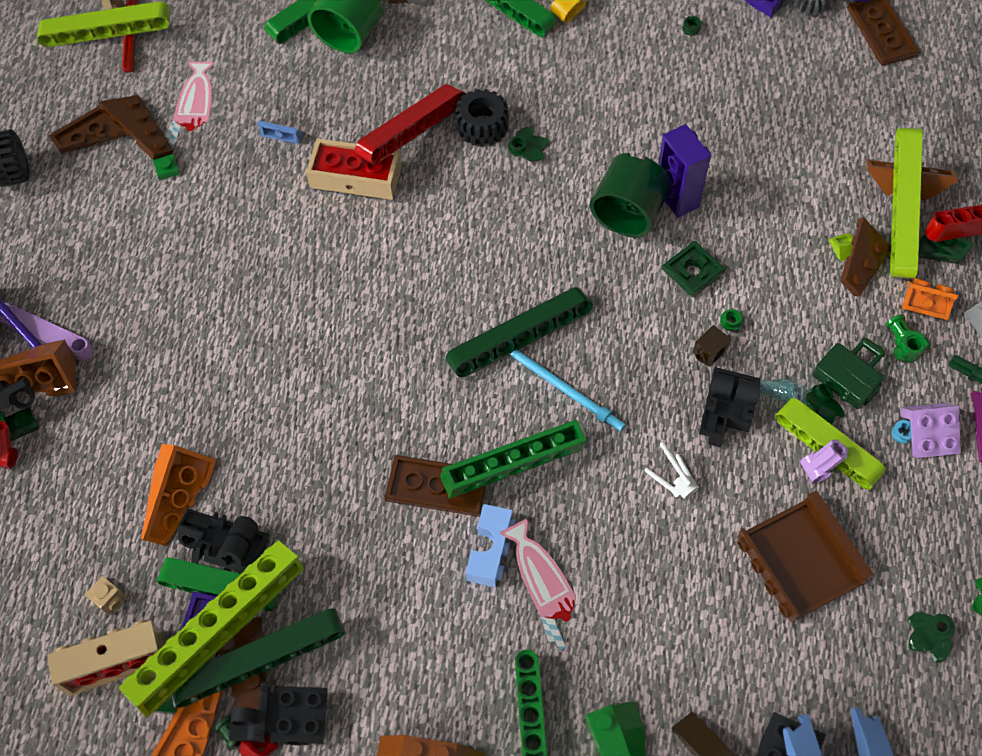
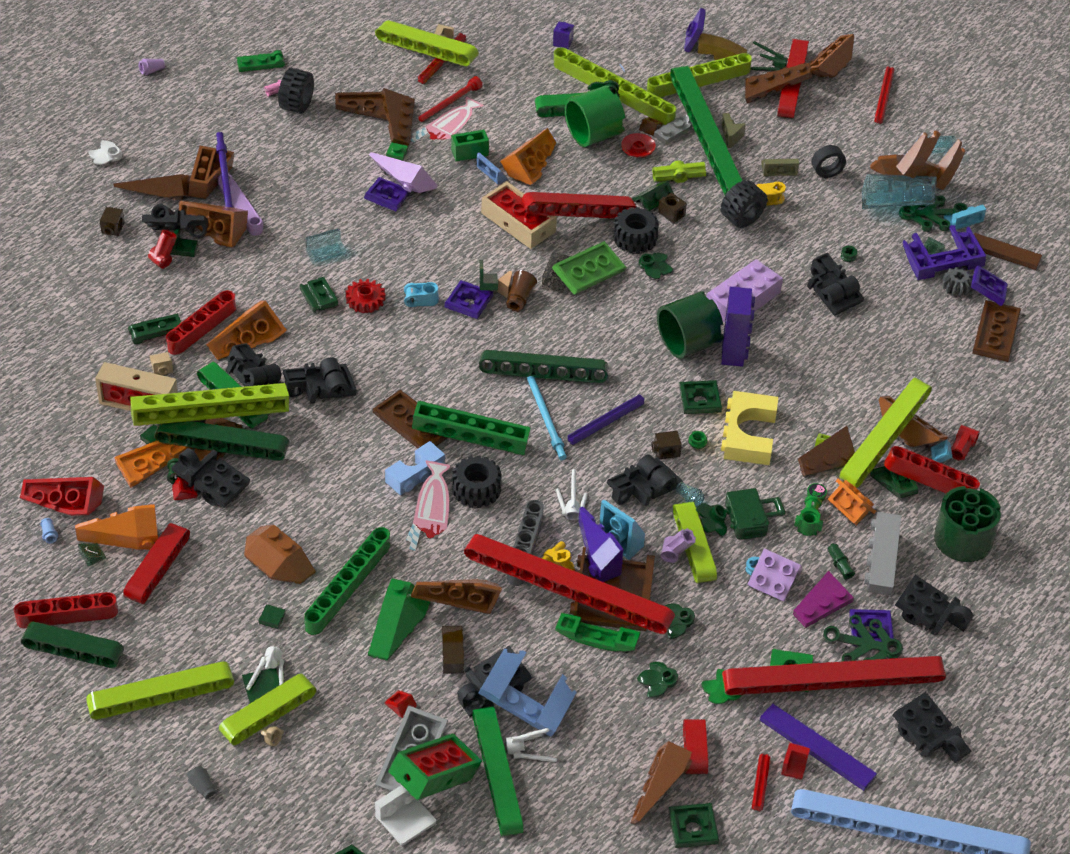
camera: 30 degrees right, 15 degrees down
(64, 553) = (153, 328): none -> dark green plate
(112, 523) = (201, 322): none -> red beam
(179, 328) = (325, 246): none -> clear light blue panel
(187, 44) = (474, 84): none -> red piece
(188, 216) = (381, 189): none -> dark purple piece
(207, 190) = (409, 175): none -> lavender wedge
(217, 392) = (318, 294): none -> dark green plate
(241, 117) = (468, 144): none -> green brick
(273, 372) = (365, 296): none -> red gear
(306, 502) = (326, 380): none -> black plate
(309, 97) = (527, 160): none -> orange wedge
(324, 323) = (423, 294): none -> medium azure piece
(369, 288) = (468, 291): none -> dark purple piece
(382, 264) = (487, 281): none -> panel
(403, 258) = (504, 284): none -> light nougat slope
(405, 21) = (638, 145): none -> red dish
(425, 256) = (520, 290): none -> reddish brown plant
(442, 207) = (550, 279): none -> clear smoke brick
(464, 67) = (651, 196): none -> dark green panel
(467, 28) = (679, 171): none -> lime piece
(473, 188) = (589, 267): none -> bright green tile
(493, 71) = (672, 208): none -> dark brown brick
(564, 28) = (744, 203): none -> black tyre
(567, 501) = (476, 470): none -> black tyre
(626, 354) = (605, 419): none -> dark purple axle
(639, 121) = (762, 280): none -> lavender brick
(674, 572) = (528, 532): none -> dark grey beam
(682, 666) = (466, 594): none -> dark orange wedge
(713, 69) = (833, 285): none -> black plate
(721, 558) = (559, 556): none -> yellow piece
(761, 485) = (623, 528): none -> medium azure slope
(768, 526) = (602, 548): none -> dark purple wedge
(770, 590) = (569, 584): none -> red beam
(771, 301) = (740, 445): none -> light yellow arch
(835, 624) = (595, 636): none -> green slope
(884, 307) = (817, 490): none -> tile
(884, 551) = (679, 624): none -> dark green plate
(956, 192) = (941, 451): none -> medium azure tile
(962, 162) = (964, 440): none -> red piece

